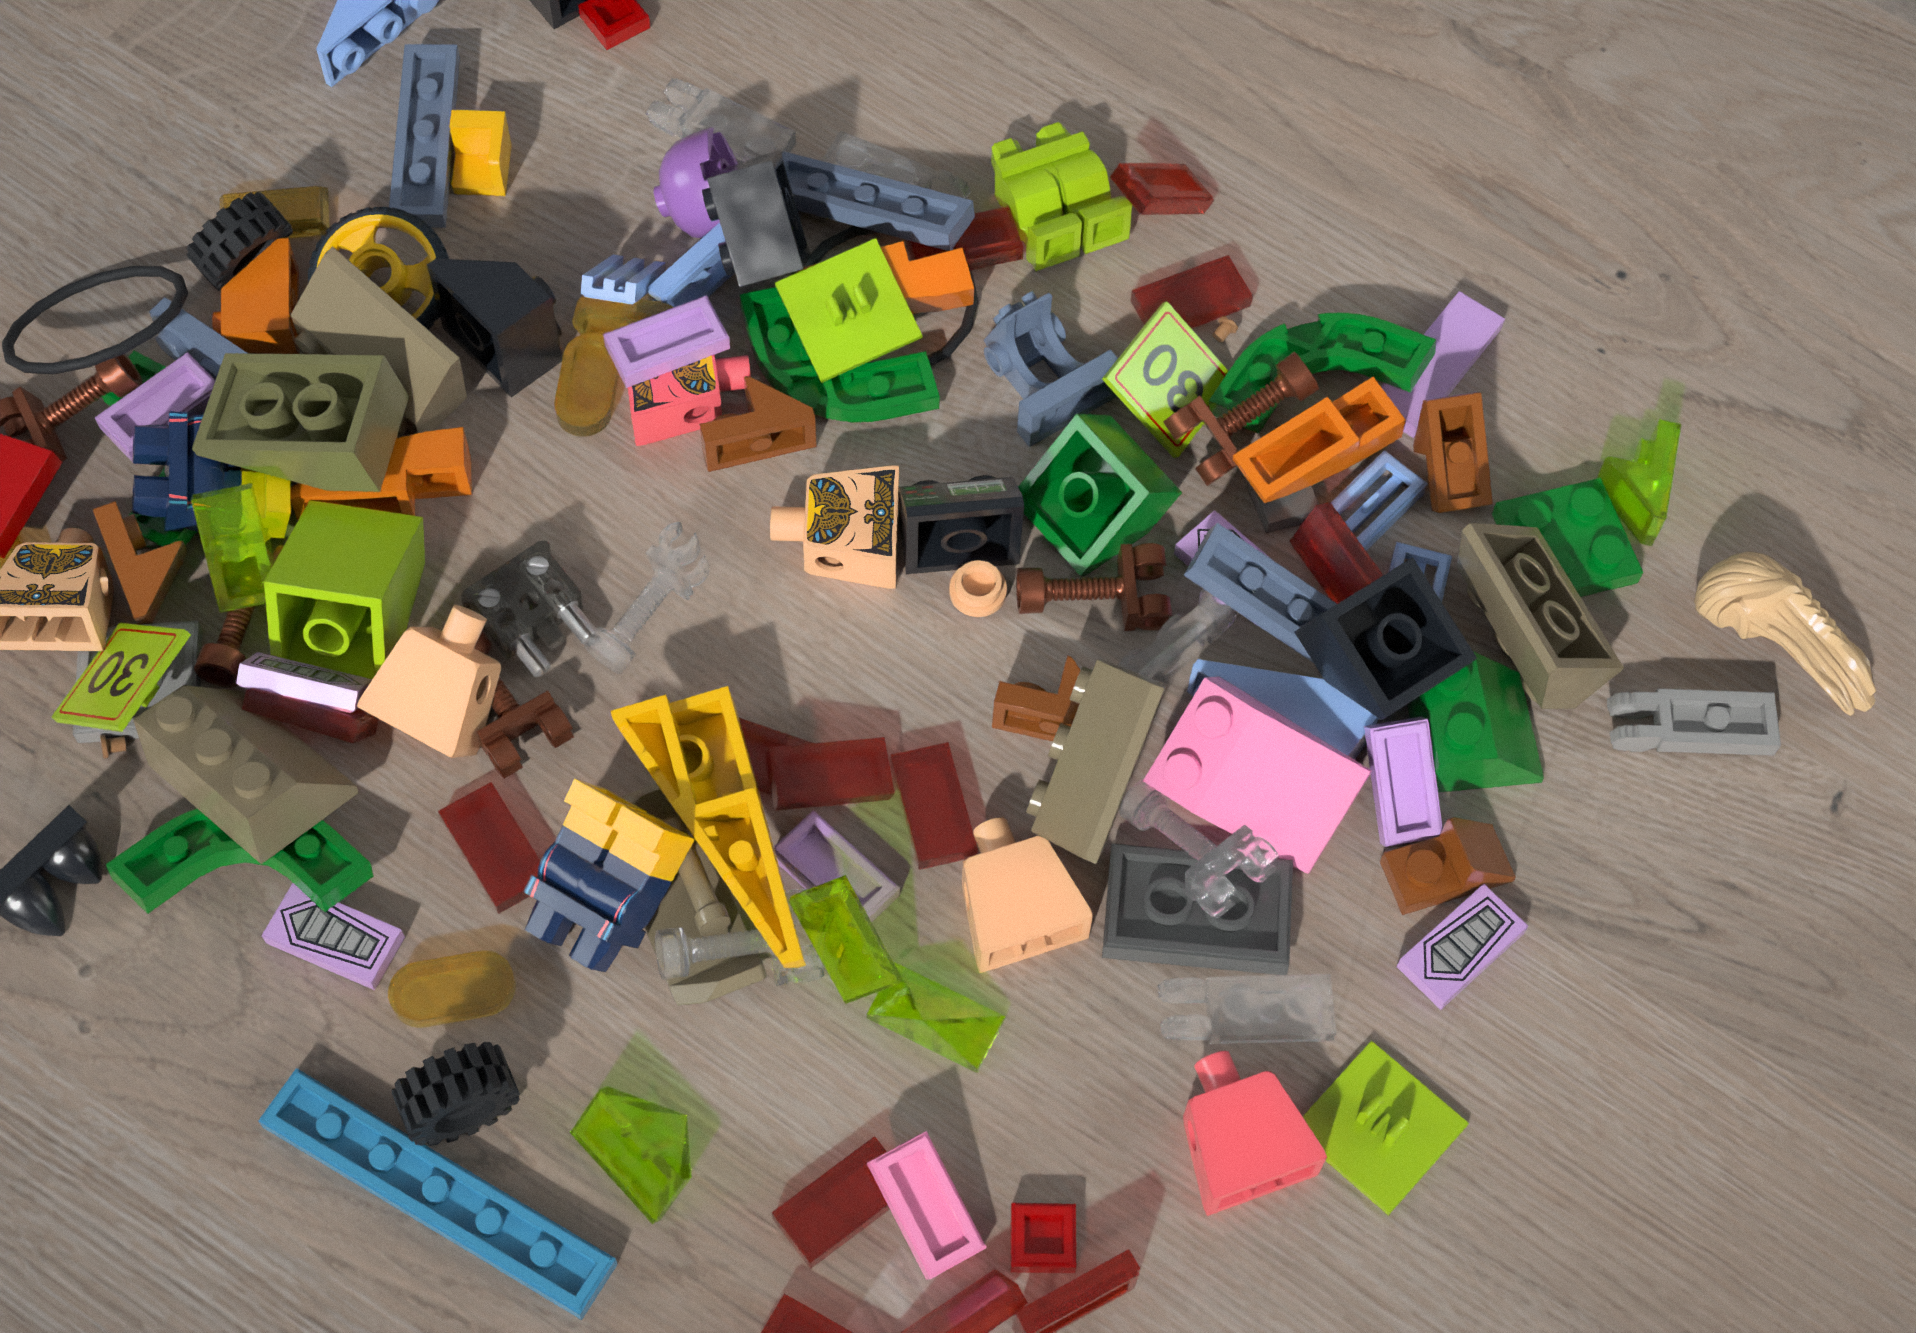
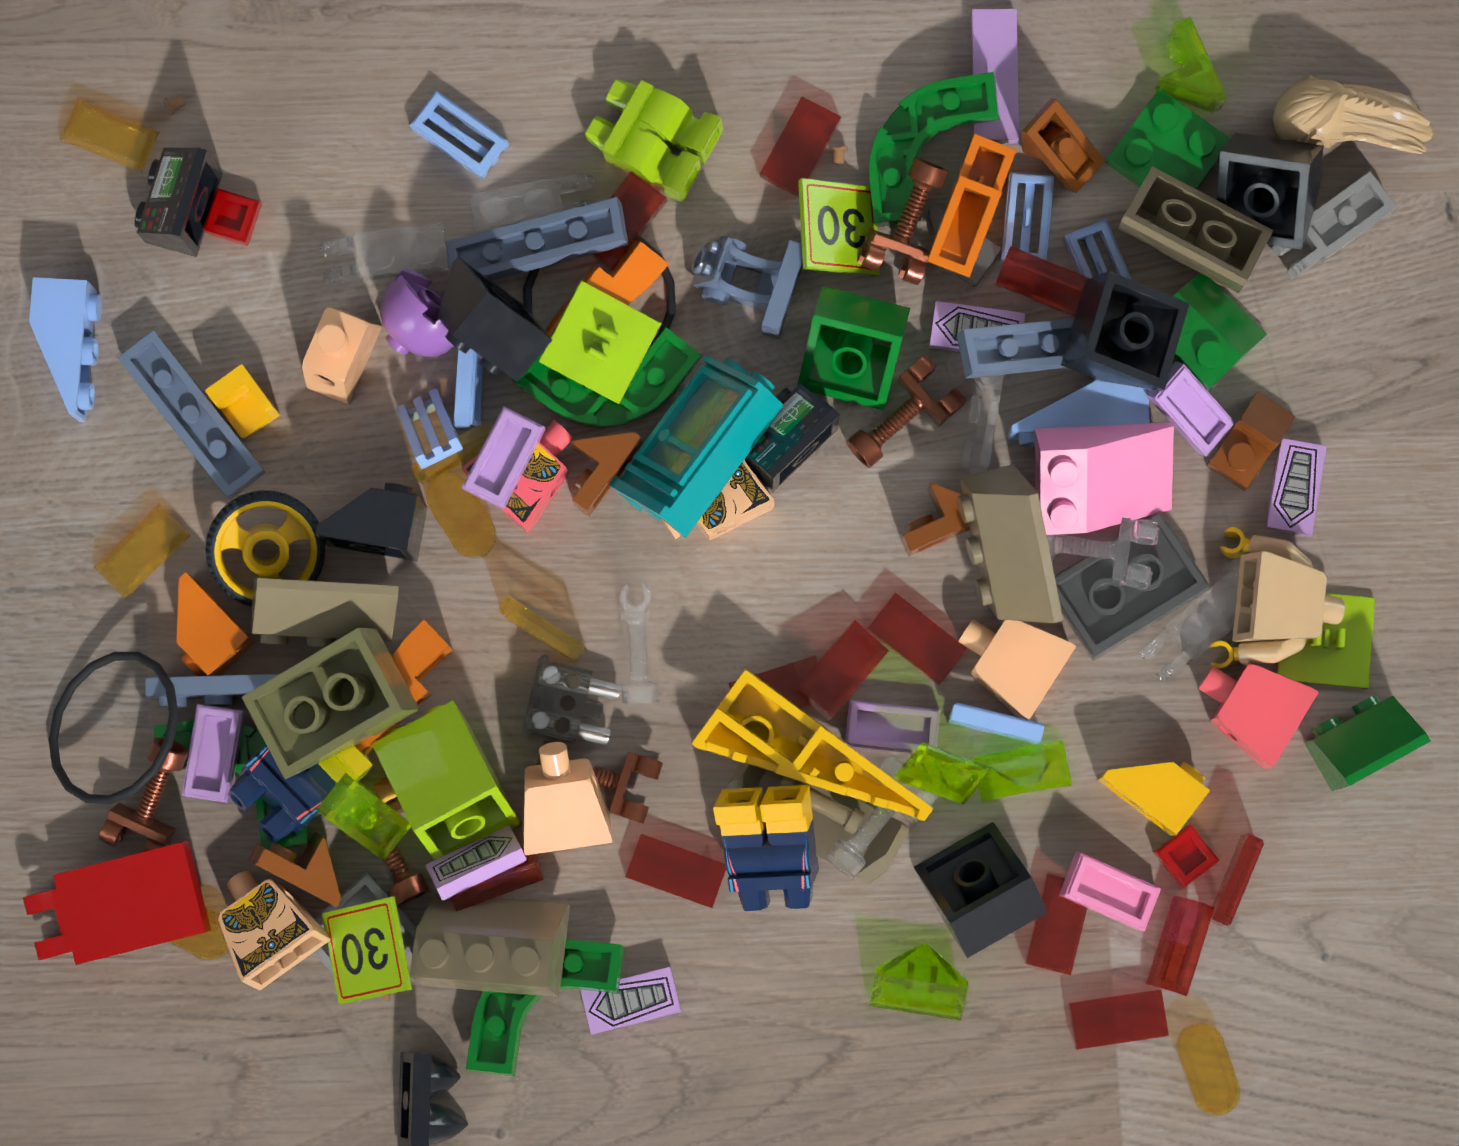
camera: 30 degrees left, 20 degrees up
(236, 237) = (155, 599): black tyre -> none
(439, 1193) = (824, 1099): dark azure tile -> none
(452, 989) = (728, 976): clear yellow tile -> none
(455, 1093) = (797, 1041): black tyre -> none
(568, 526) = (542, 629): none -> clear yellow tile
(600, 165) = (339, 353): none -> light nougat torso
(786, 1098) = (981, 889): none -> black slope
(865, 459) = (699, 444): none -> teal door
(886, 116) = (489, 157): none -> light blue tile
(945, 940) = (996, 723): none -> light blue tile
(978, 589) = (830, 471): light nougat plate -> none
(1066, 1139) = (1159, 792): none -> yellow slope
(1162, 188) = (724, 81): clear red tile -> none
(1340, 1257) = (1364, 742): none -> green slope
(1349, 1035) = (1277, 601): none -> tan torso
(1655, 628) = (1272, 184): none -> black slope

